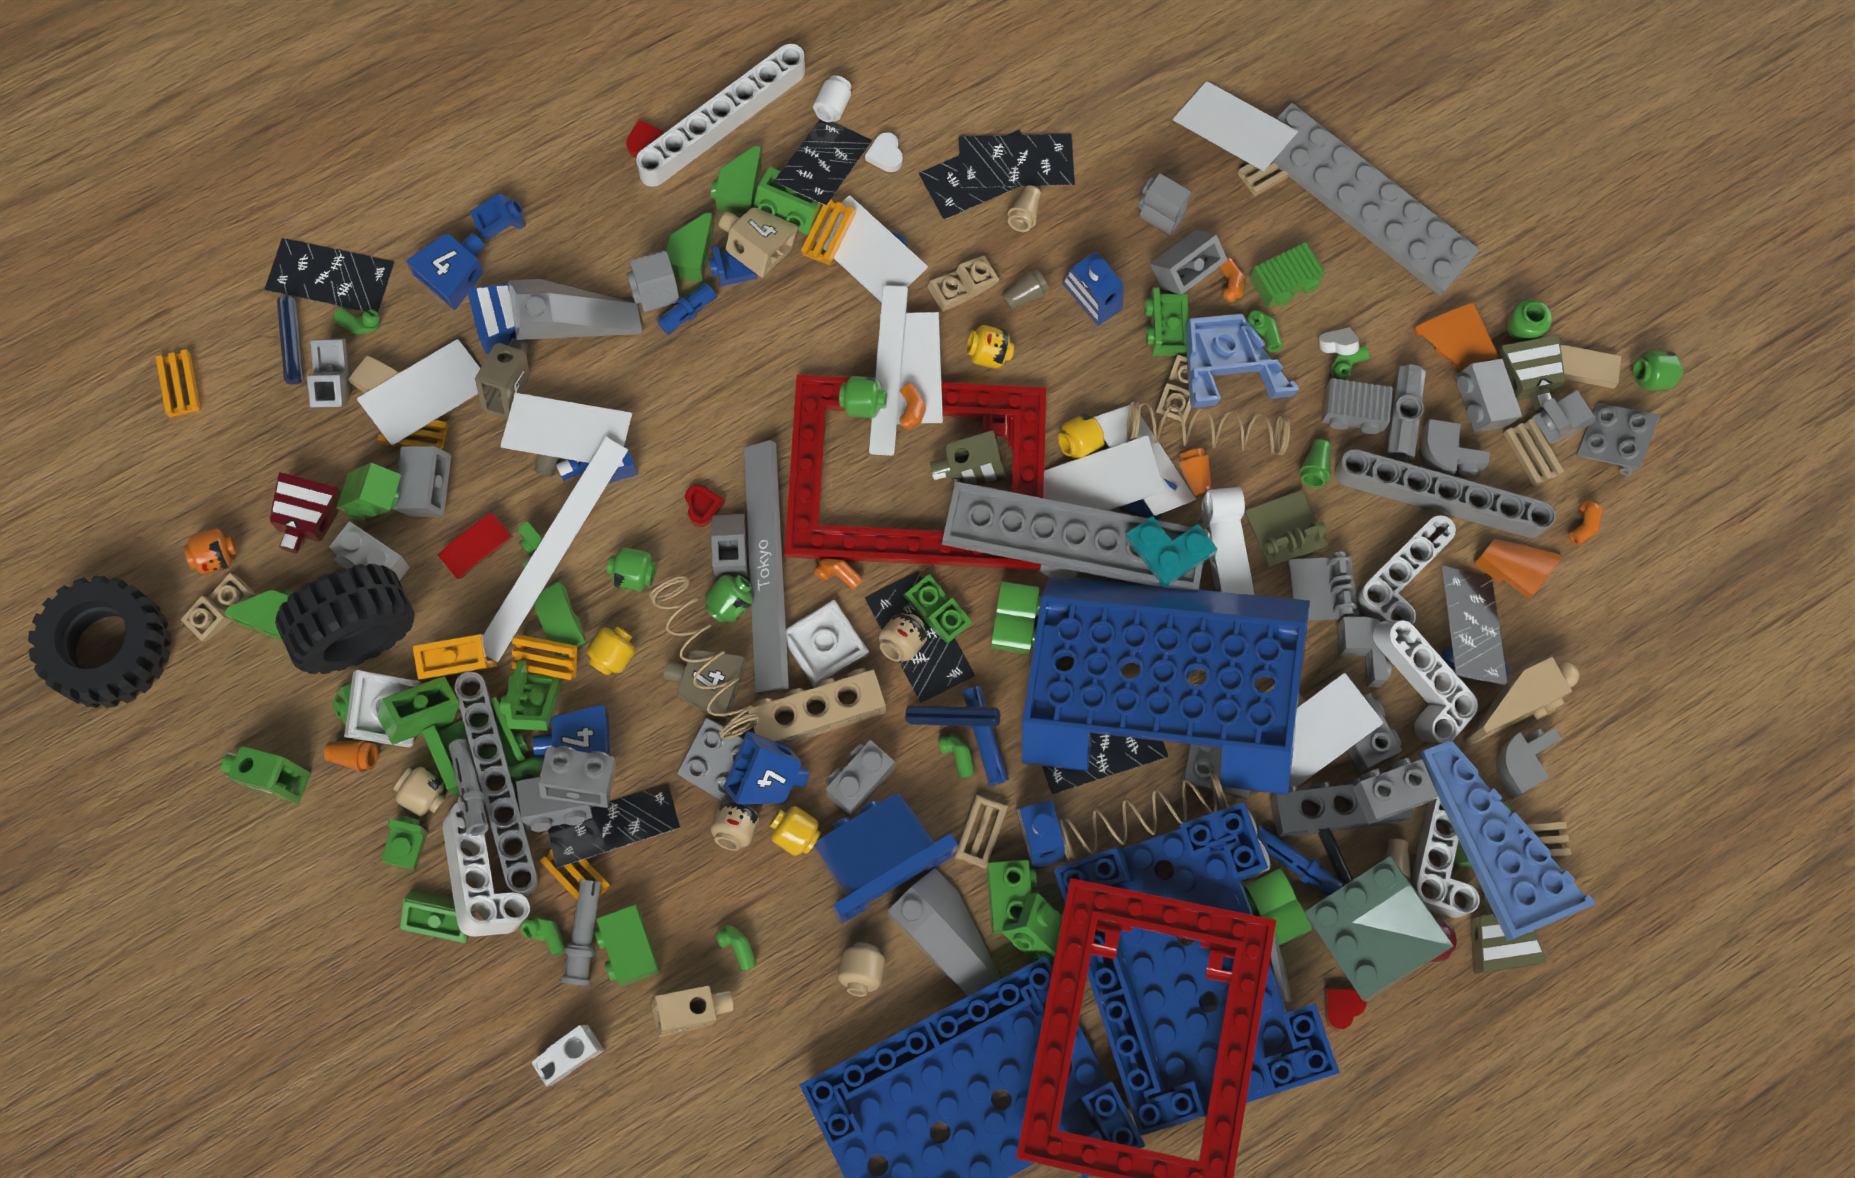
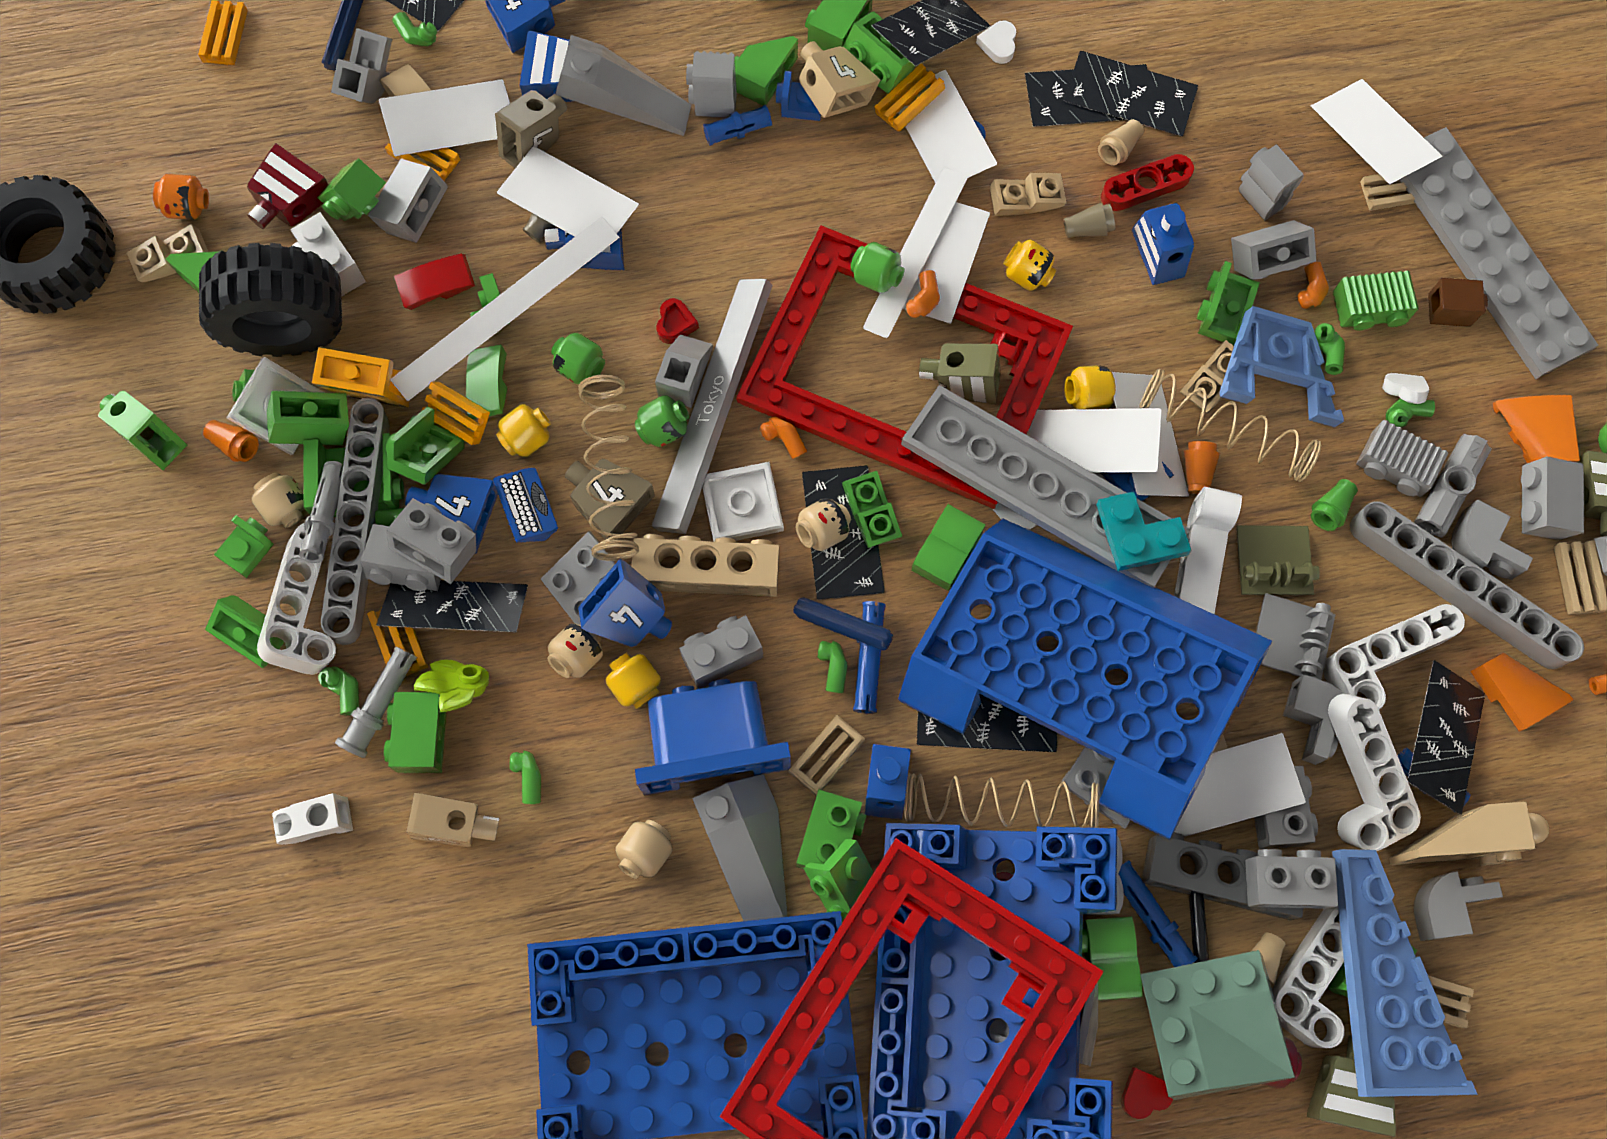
camera: 25 degrees right, 0 degrees up
(640, 715) = (526, 505): none -> slope
(641, 889) = (454, 683): none -> lime plate
(1064, 224) = (1155, 170): none -> red beam
(1354, 253) = (1457, 302): none -> reddish brown brick

